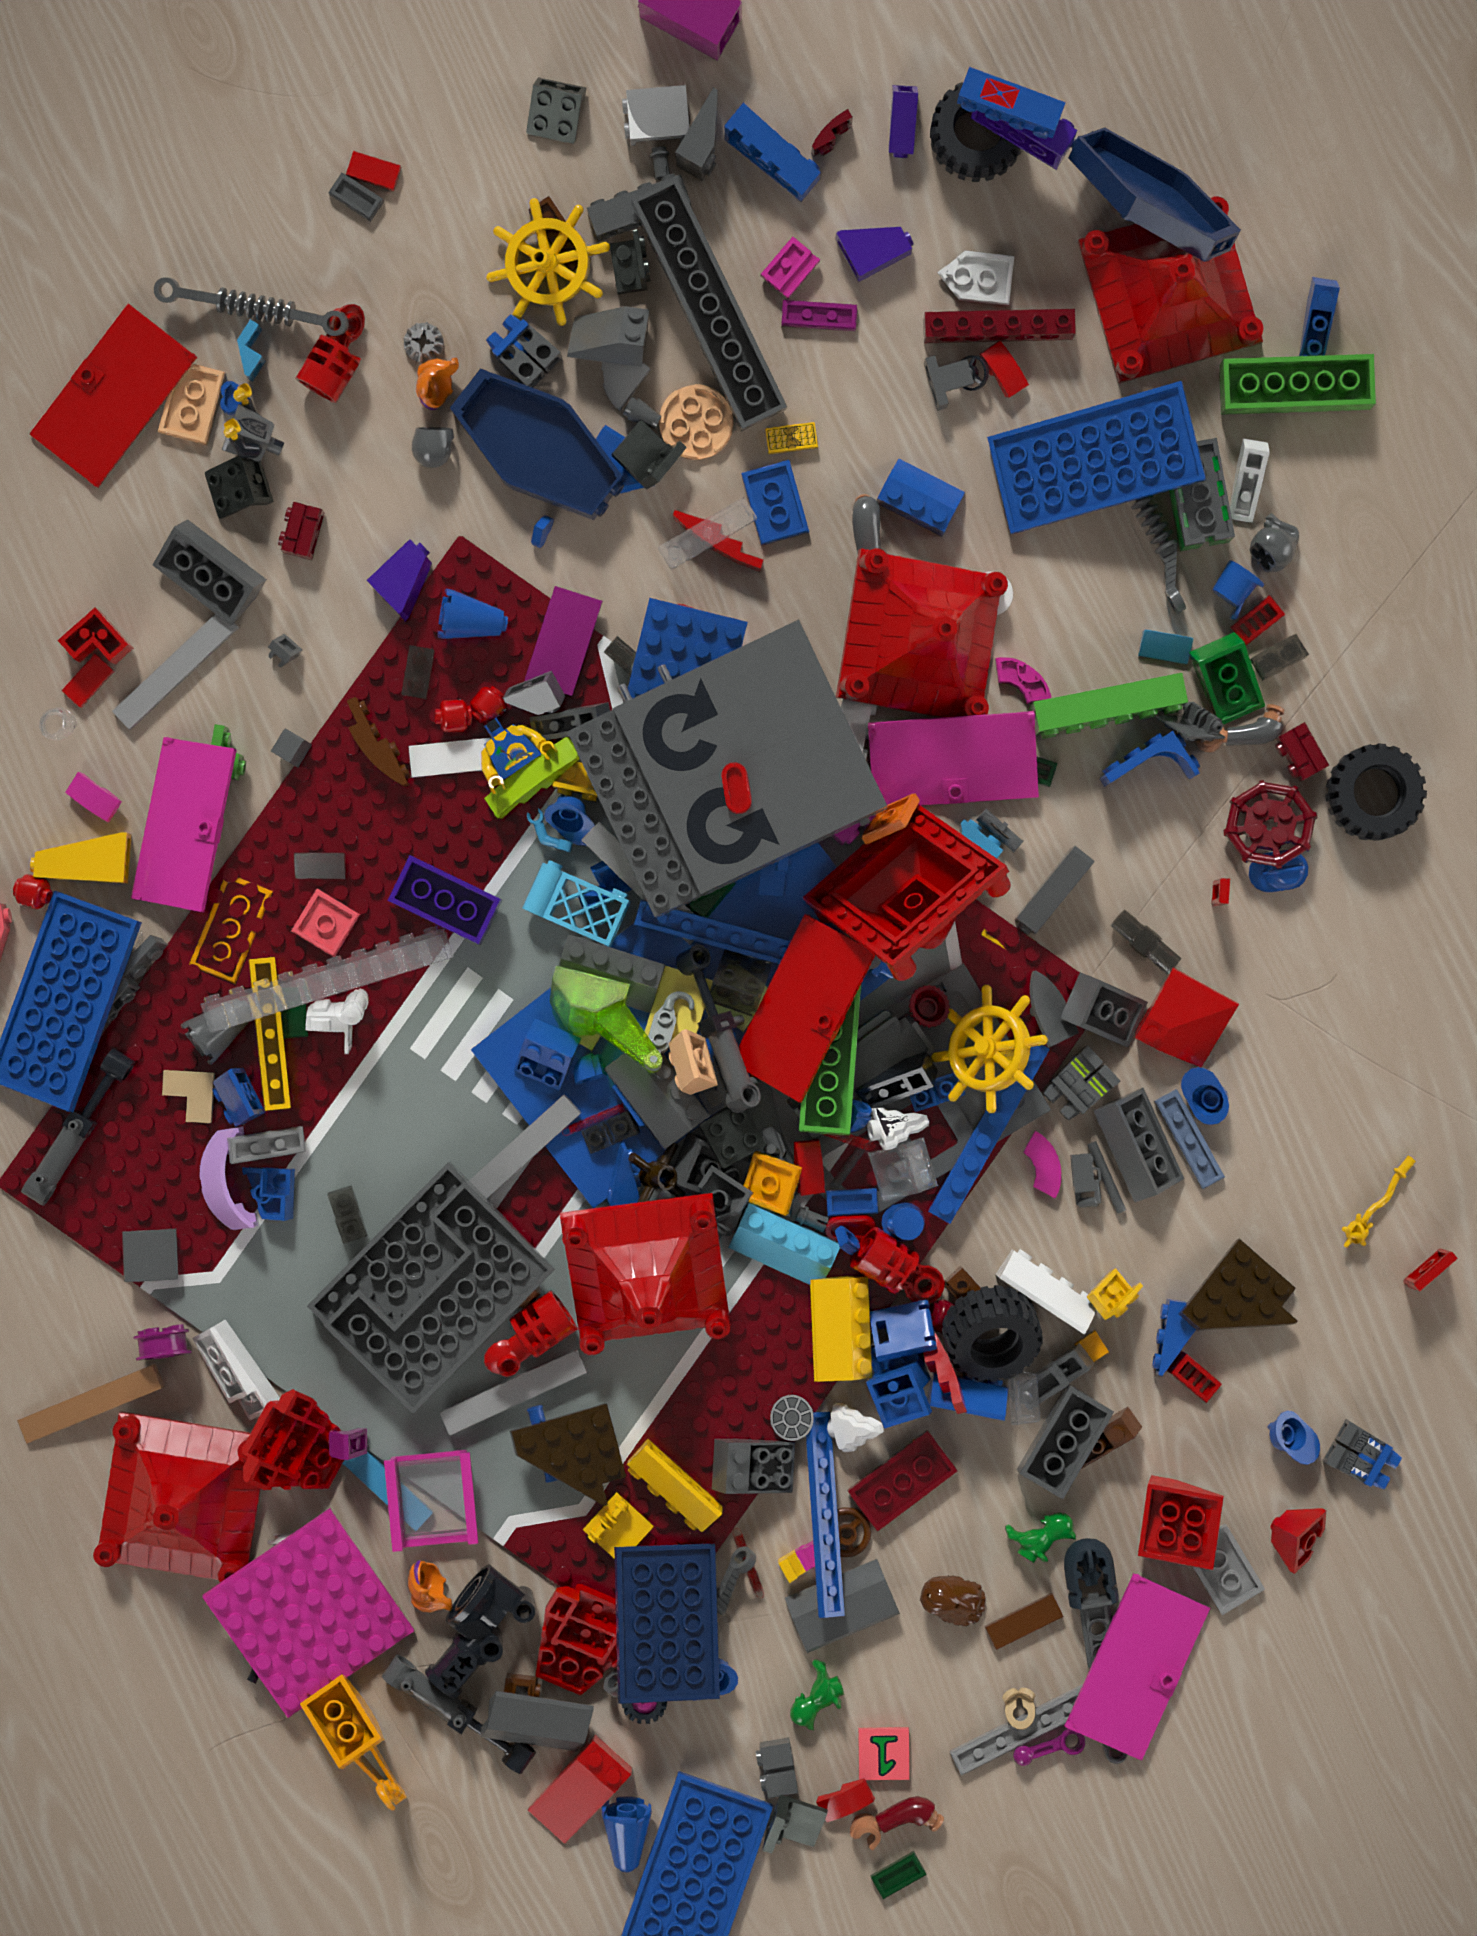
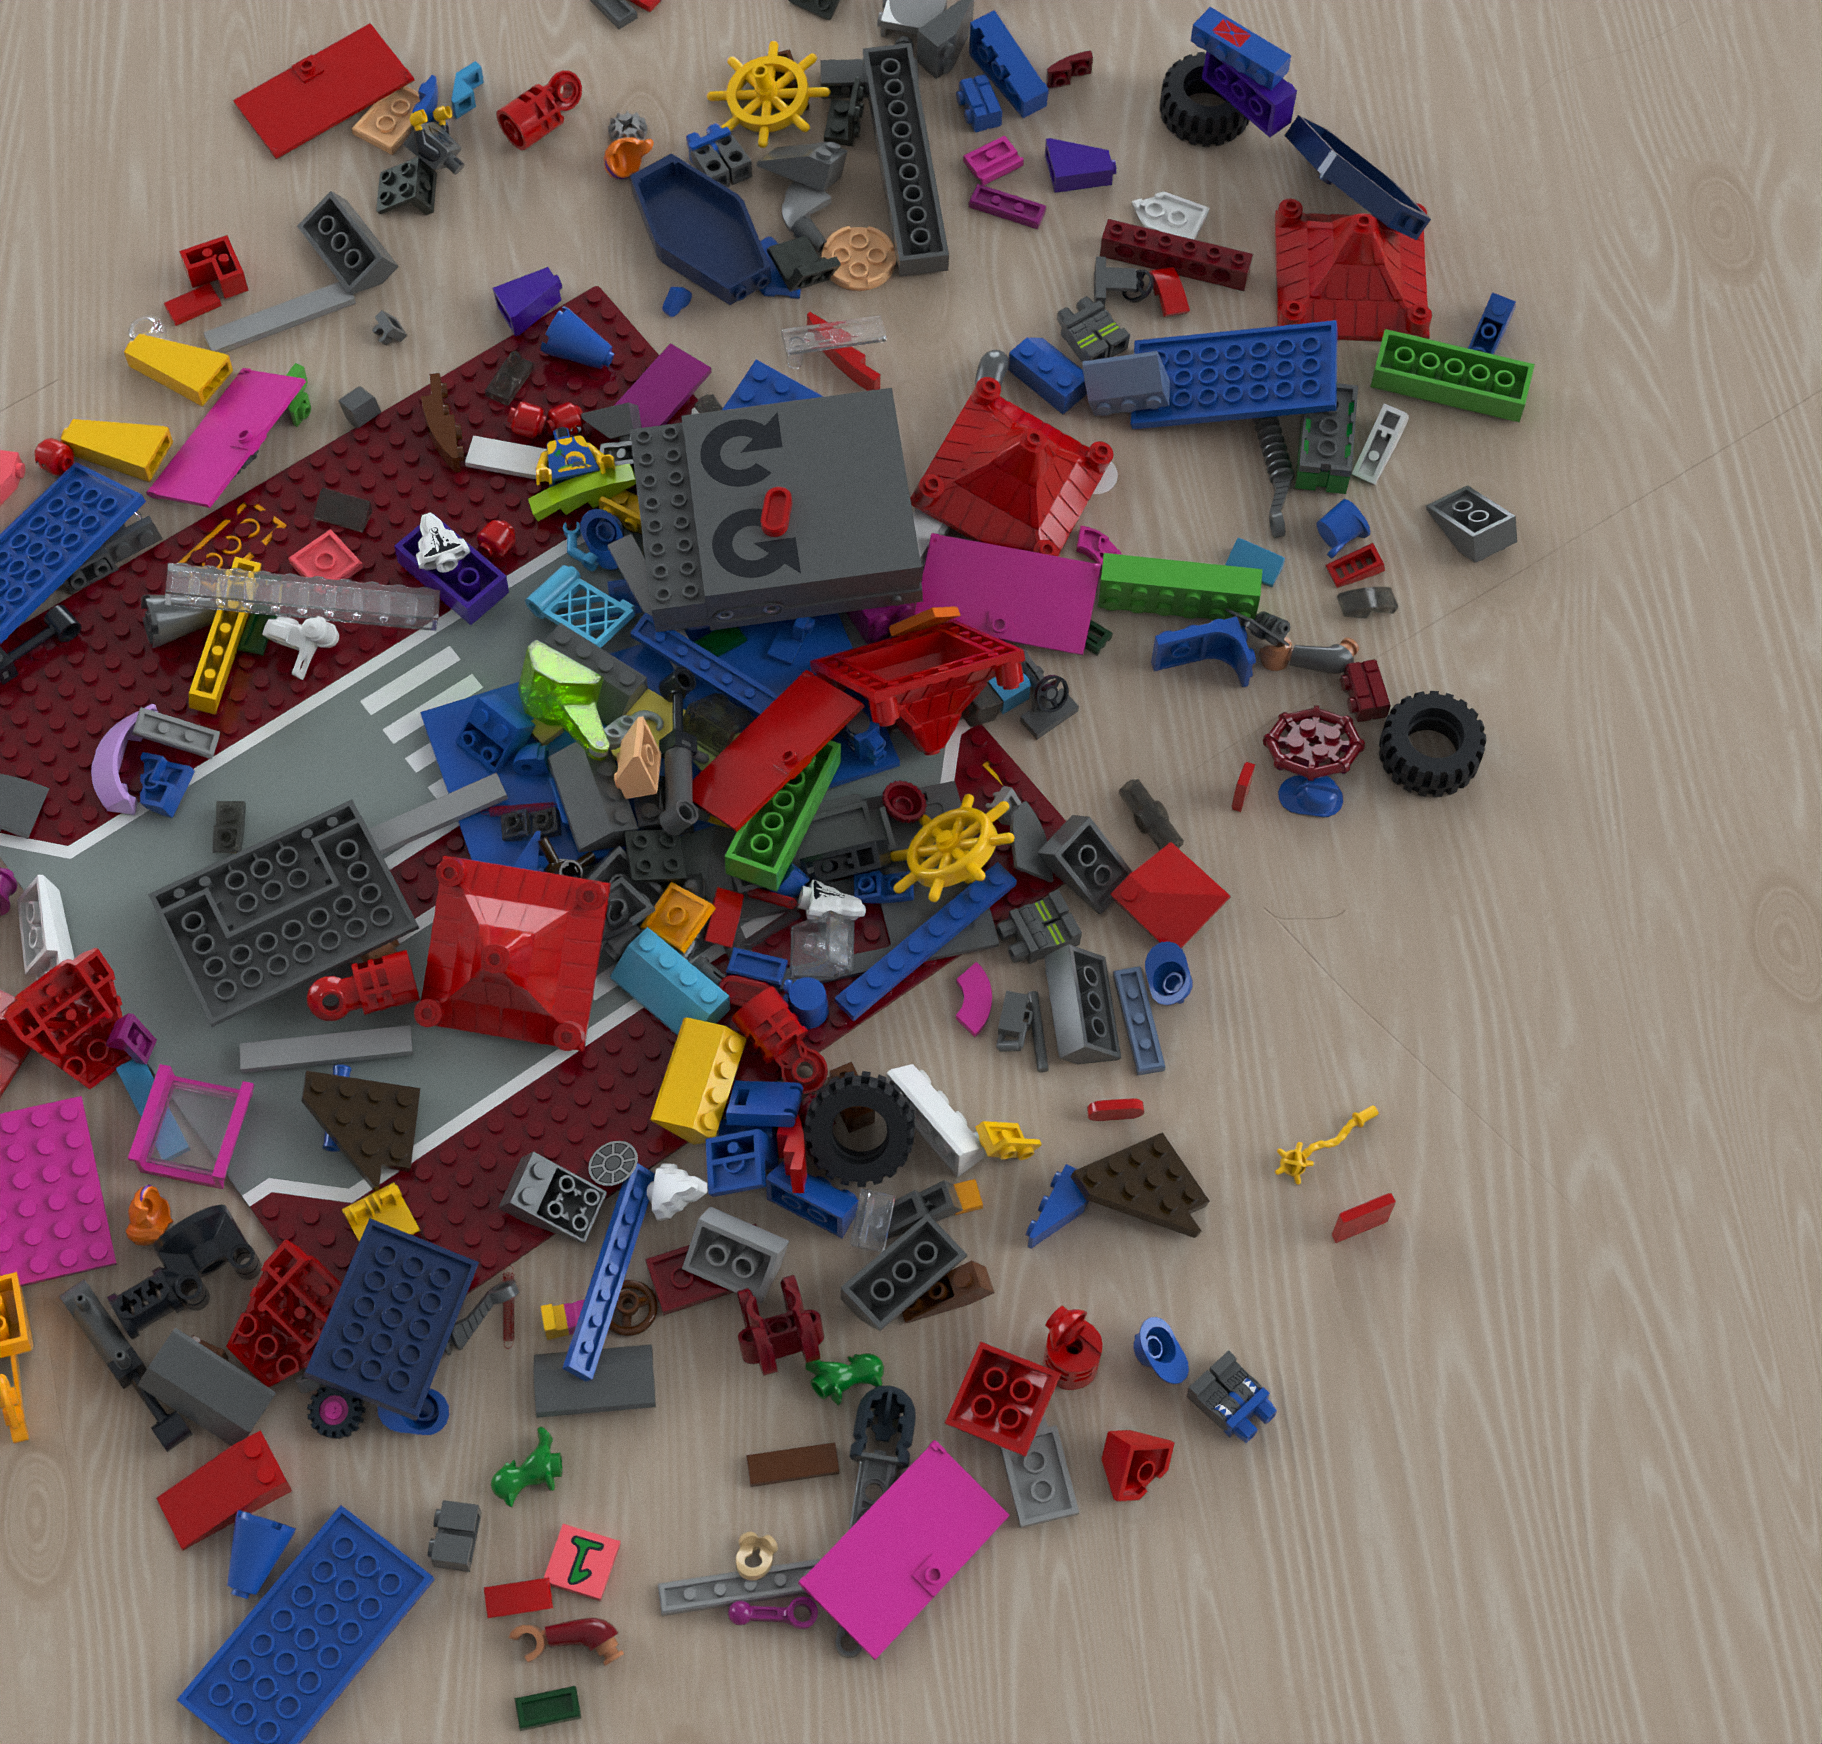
camera: 15 degrees right, 25 degrees down
(93, 797) = (151, 396): dark pink slope -> none
(112, 758) = (178, 366): none -> yellow slope
(197, 1089) = (130, 671): tan tile -> none
(220, 376) = (428, 97): none -> blue slope
(238, 1097) = (168, 677): blue slope -> none
(241, 304) = (485, 56): dark grey piece -> none
(301, 530) = (449, 238): dark red brick -> none
(429, 891) = (439, 546): none -> white rock
(432, 445) = (601, 202): dark grey helmet -> none
(472, 853) = (496, 539): none -> red head
(675, 1486) = (458, 1187): yellow slope -> none
(756, 203) = (980, 103): none -> blue brick
(775, 502) = (910, 341): blue tile -> none
(791, 438) = (945, 293): tile -> none
(795, 1822) = (449, 1599): pearl dark grey bracket -> none
(847, 1240) = (736, 995): blue tile -> none
(903, 120) = (1139, 73): dark purple slope -> none
(922, 1468) = (734, 1253): none -> light grey slope
(945, 441) = (1092, 331): none -> dark grey hips
(953, 1599) = (721, 1412): reddish brown piece -> none
(988, 1512) = (781, 1334): none -> dark red piece
(999, 502) = (1126, 383): none -> sand blue slope
(1017, 976) = (1006, 794): none -> light grey tile
(1026, 862) = (1048, 706): none -> dark grey piece
(1053, 890) = (1072, 737): dark grey slope -> none
(1182, 1365) = (1072, 1246): red slope -> none
(1194, 1231) = (1115, 1109): none -> red tile
(1224, 1465) = (1072, 1348): none -> red cylinder
(1227, 677) = (1310, 605): green slope -> none
(1274, 544) = (1390, 504): dark grey piece -> none
(1354, 539) = (1474, 523): none -> dark grey slope

